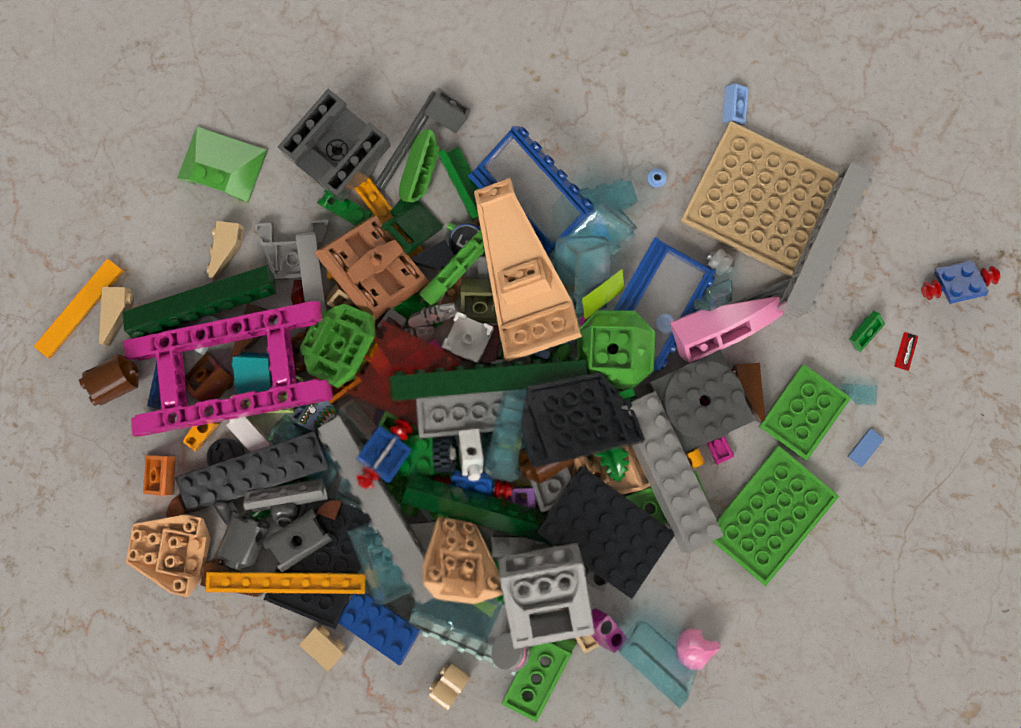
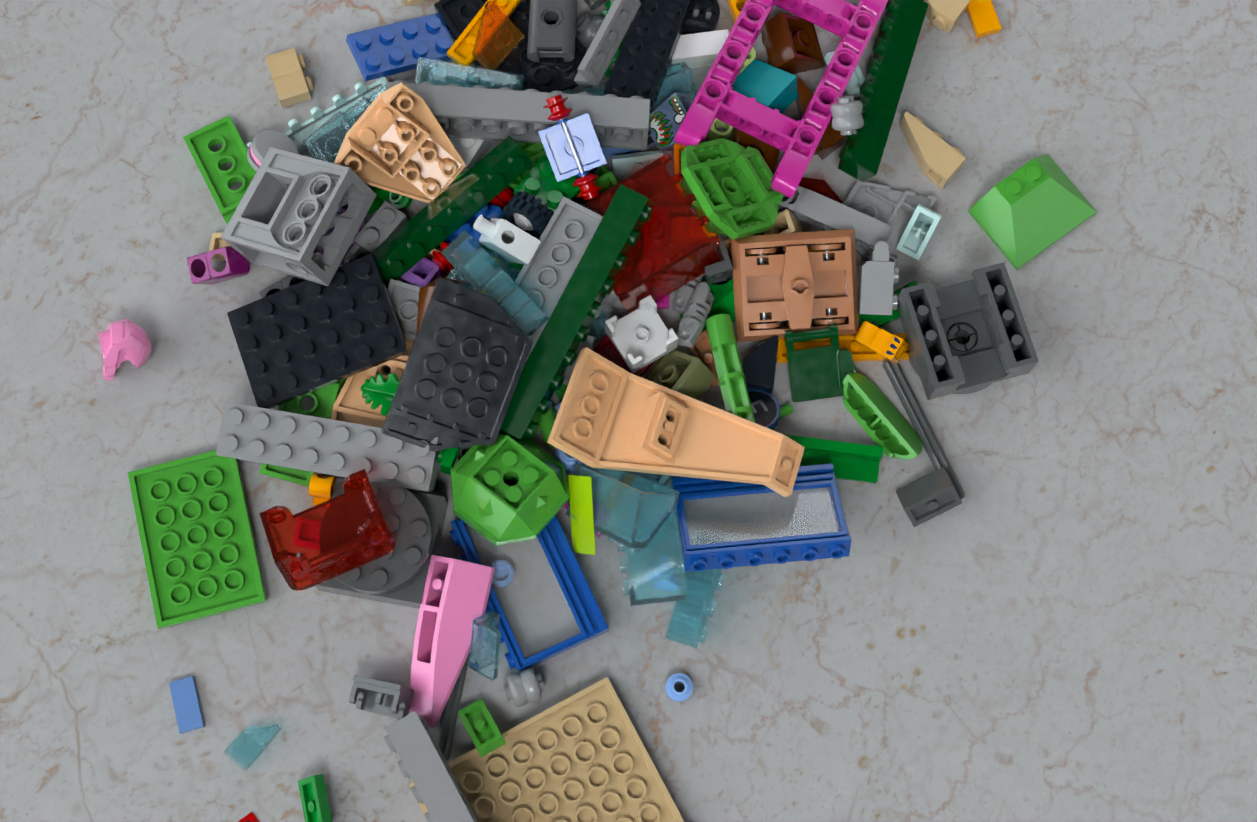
camera: 120 degrees right, 10 degrees down
(241, 303) = (847, 115): none -> light grey piece
(284, 220) = (918, 232): none -> light aqua slope
(330, 509) = (560, 75): copper tile -> none
(334, 568) = (495, 37): none -> clear orange wing
(338, 218) = (877, 283): none -> light grey hinge
(372, 196) = (881, 342): none -> light orange leg
(658, 662) = (149, 294): clear light blue windscreen -> none
(727, 425) = (329, 536): none -> clear red windscreen
(750, 379) = (360, 617): reddish brown slope -> none
(760, 269) = (481, 727): none -> bright green plate
(783, 337) = (381, 697): none -> dark grey hinge
(804, 412) = (280, 660): bright green plate -> none

